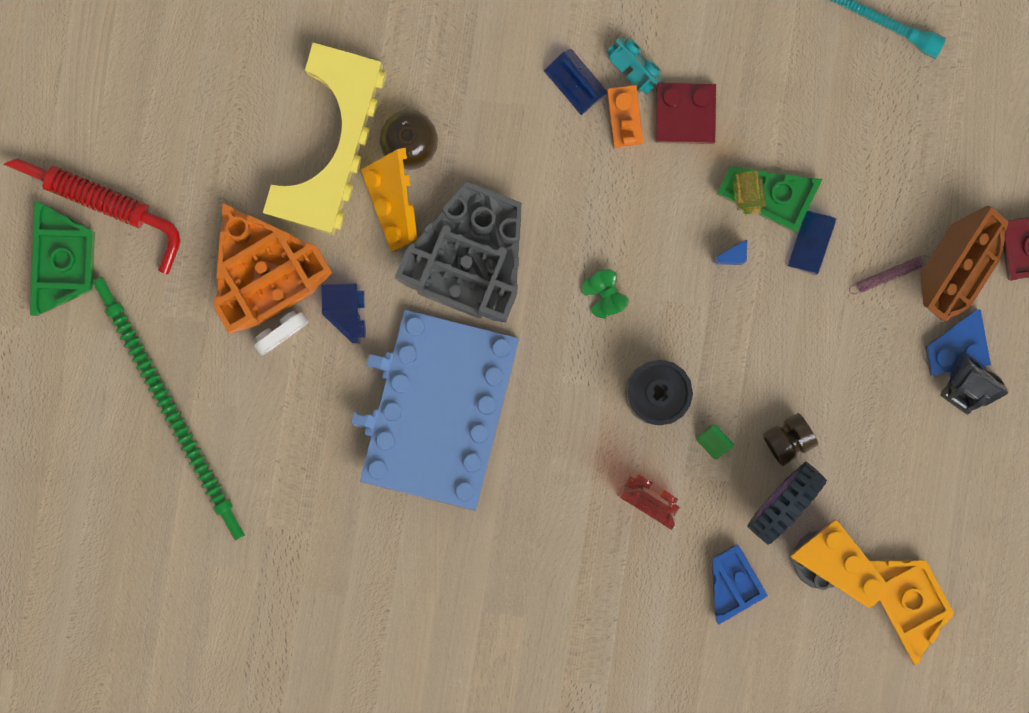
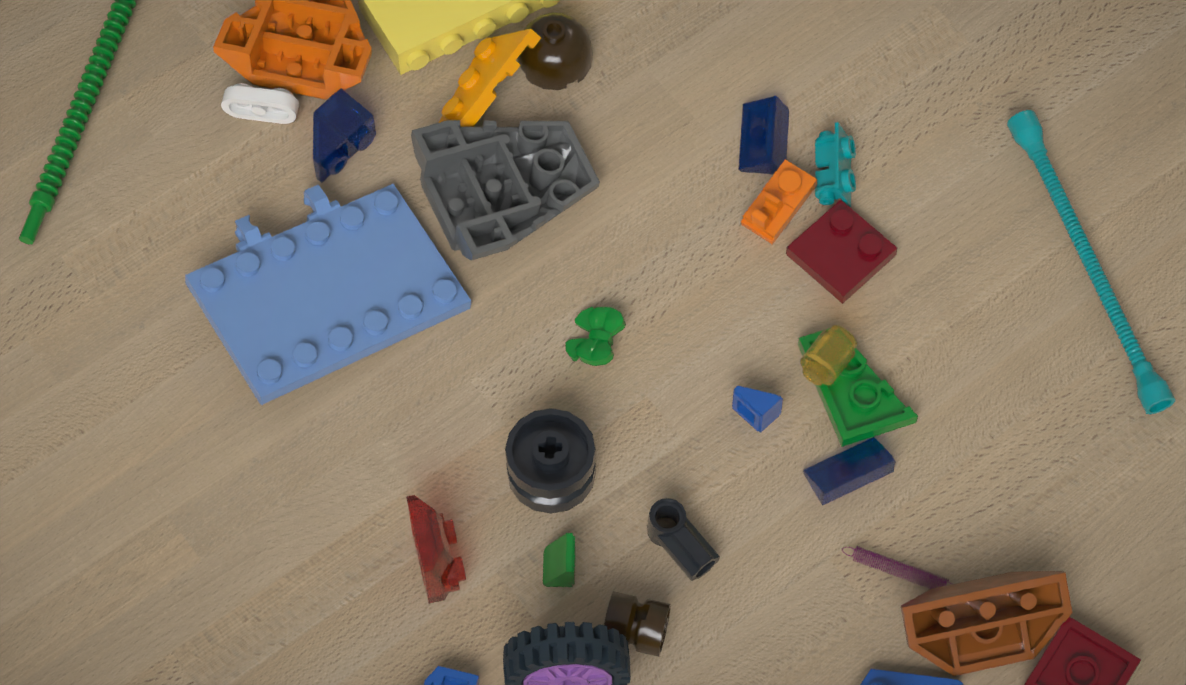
camera: 50 degrees right, 25 degrees down
(768, 369) = (682, 541): none -> black piece

